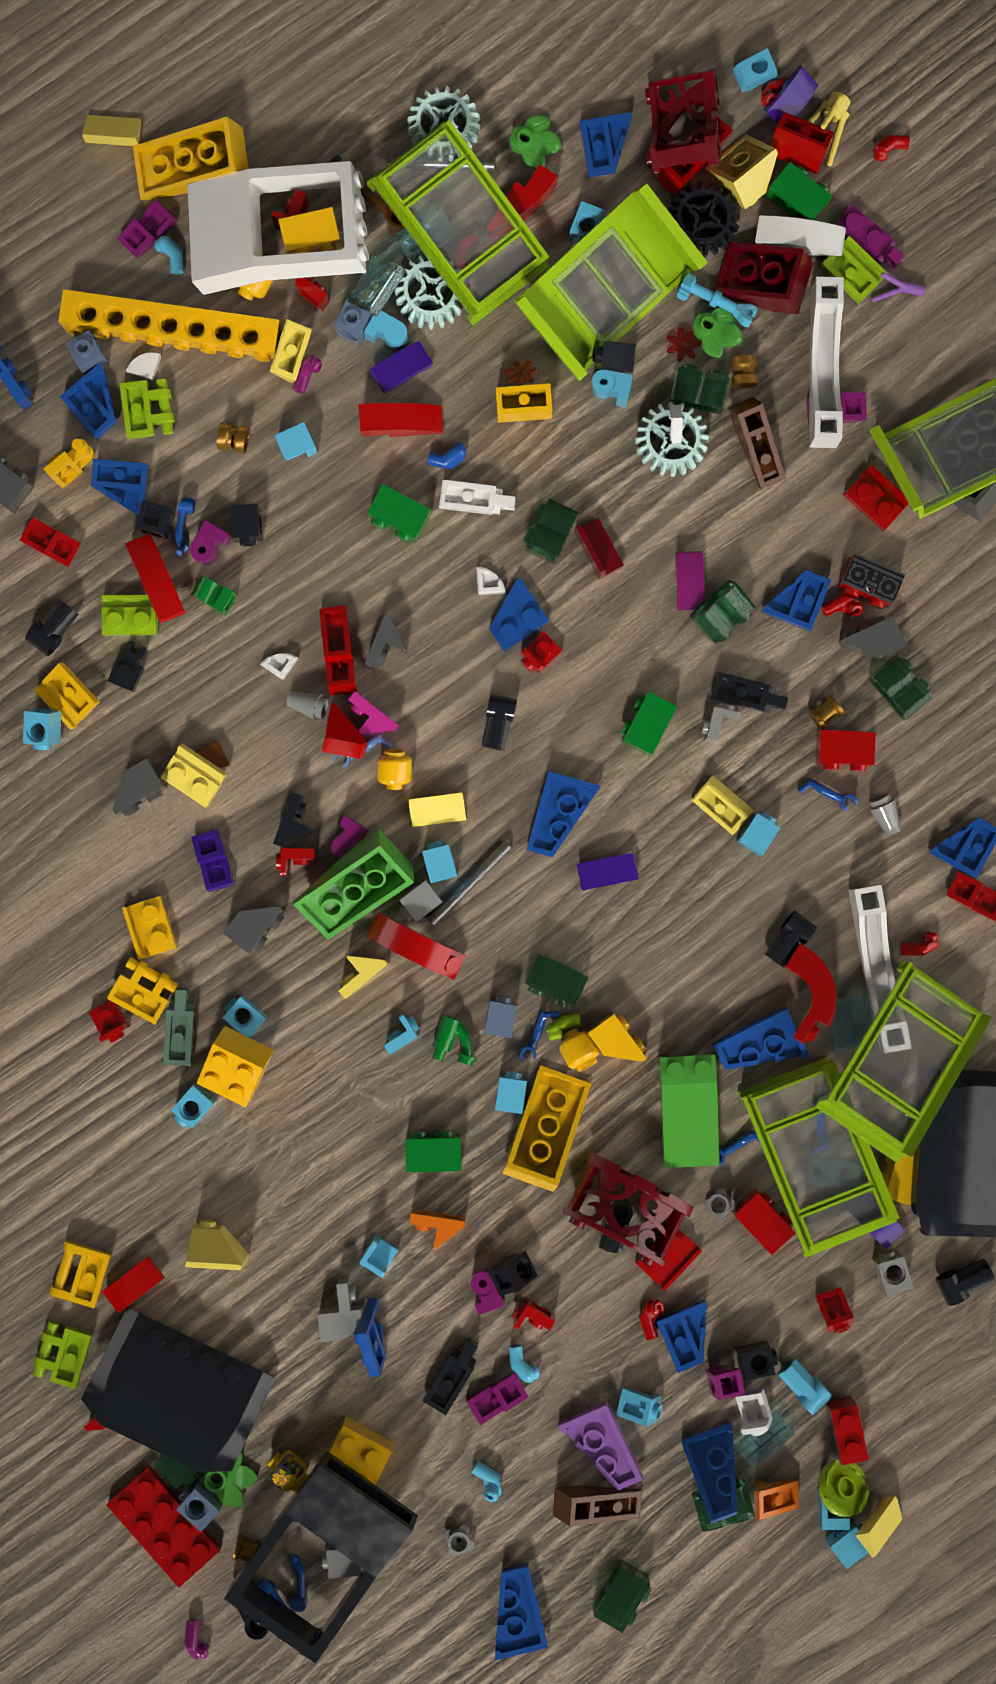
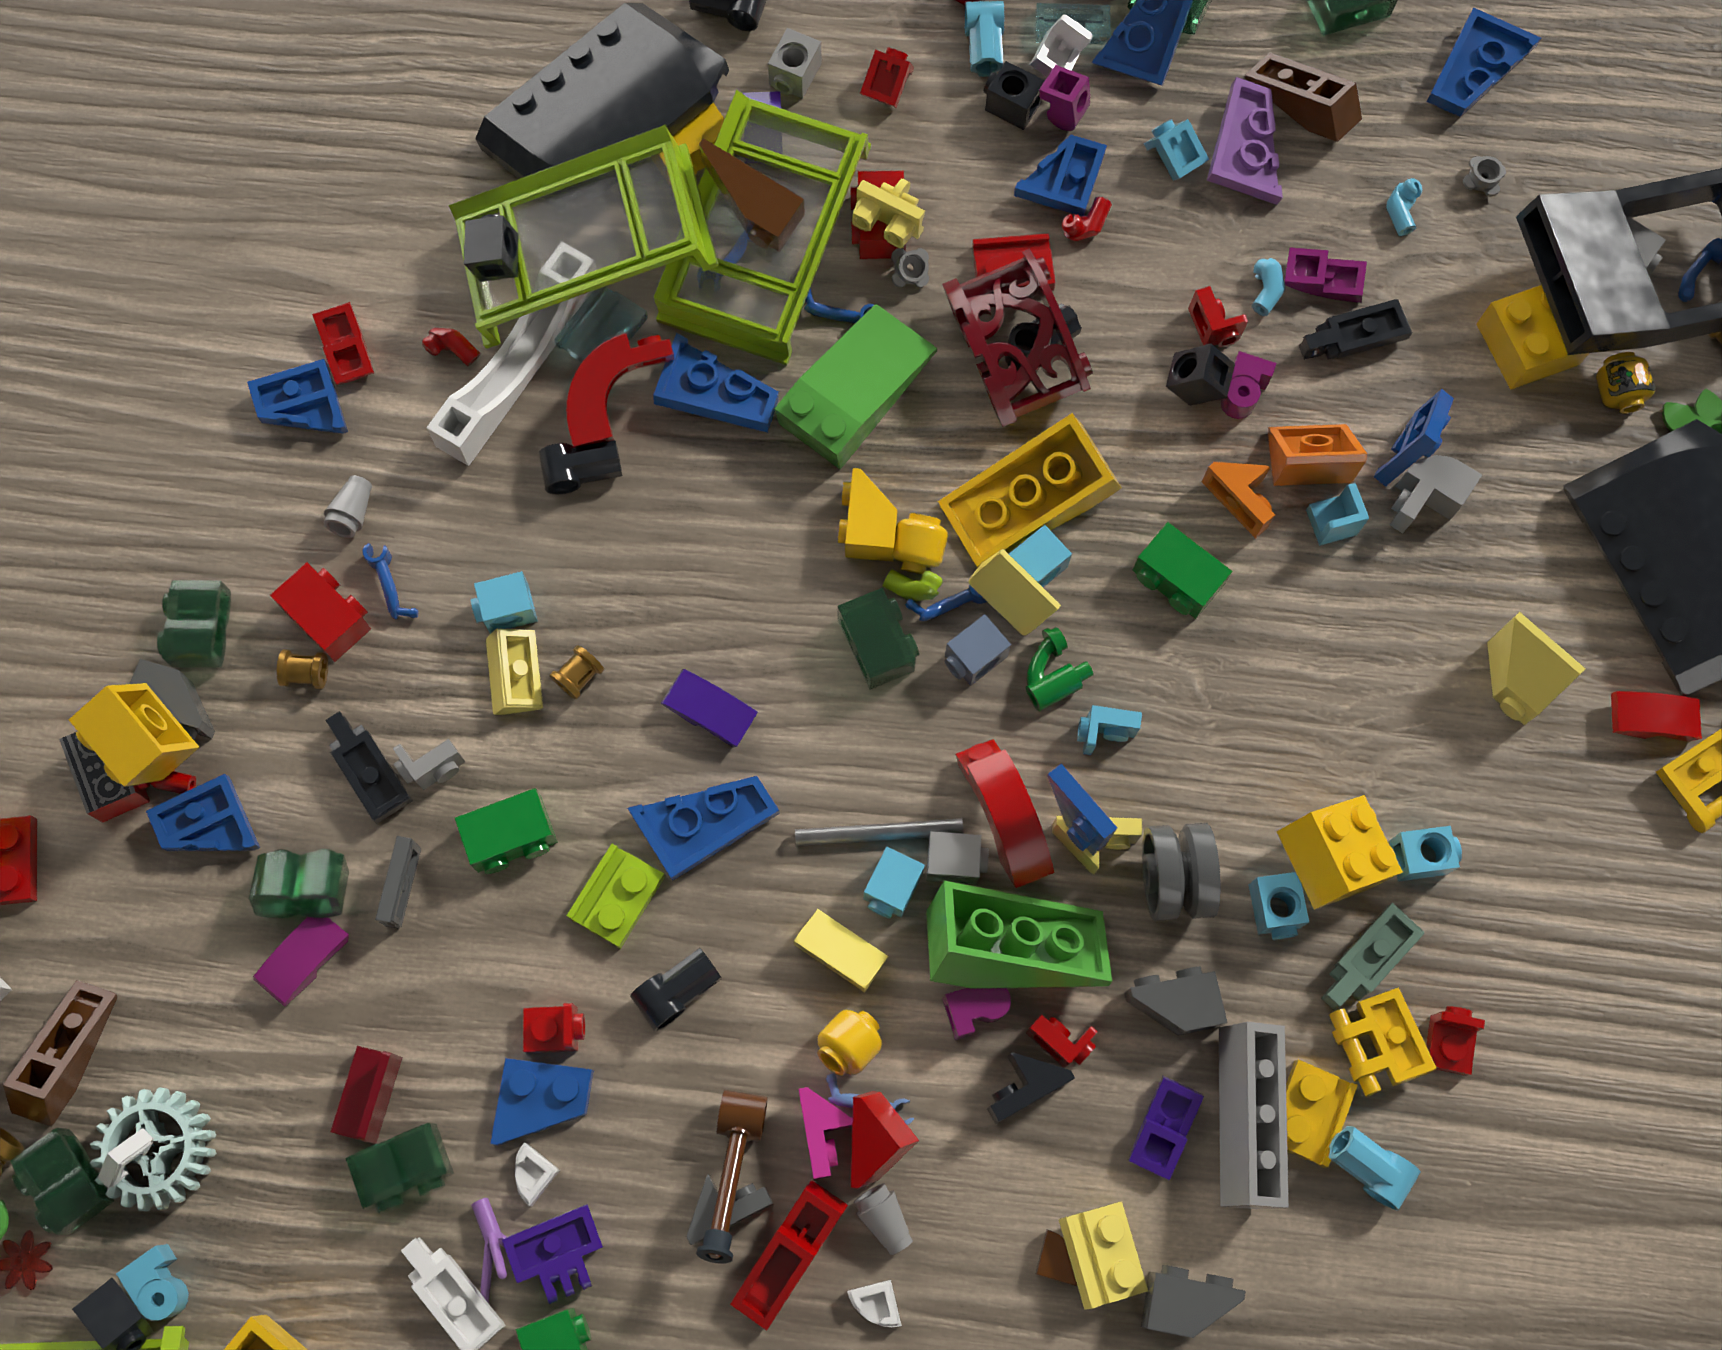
camera: 140 degrees left, 15 degrees down
(96, 925) = (1384, 1173): none -> medium azure piece
(175, 899) = (1253, 1116): none -> light grey brick
(308, 983) = (1181, 871): none -> dark grey wheel
(365, 966) = (1085, 819): none -> blue wing
(413, 688) = (741, 1120): none -> reddish brown piece
(419, 1283) = (1314, 454): none -> orange slope
(446, 557) = (554, 1251): none -> dark purple hinge
(479, 538) = (492, 1250): none -> medium lavender plant
(508, 1063) = (1013, 592): none -> light yellow slope
(568, 740) = (616, 896): none -> lime plate
(676, 654) = (398, 882): none -> dark grey tile
(689, 831) = (577, 672): none -> pearl gold bush
(766, 1216) = (892, 207): none -> light yellow hips
(824, 1159) = (760, 204): none -> reddish brown slope
(865, 606) = (133, 734): none -> yellow brick
(940, 1009) = (491, 248): none -> black brick

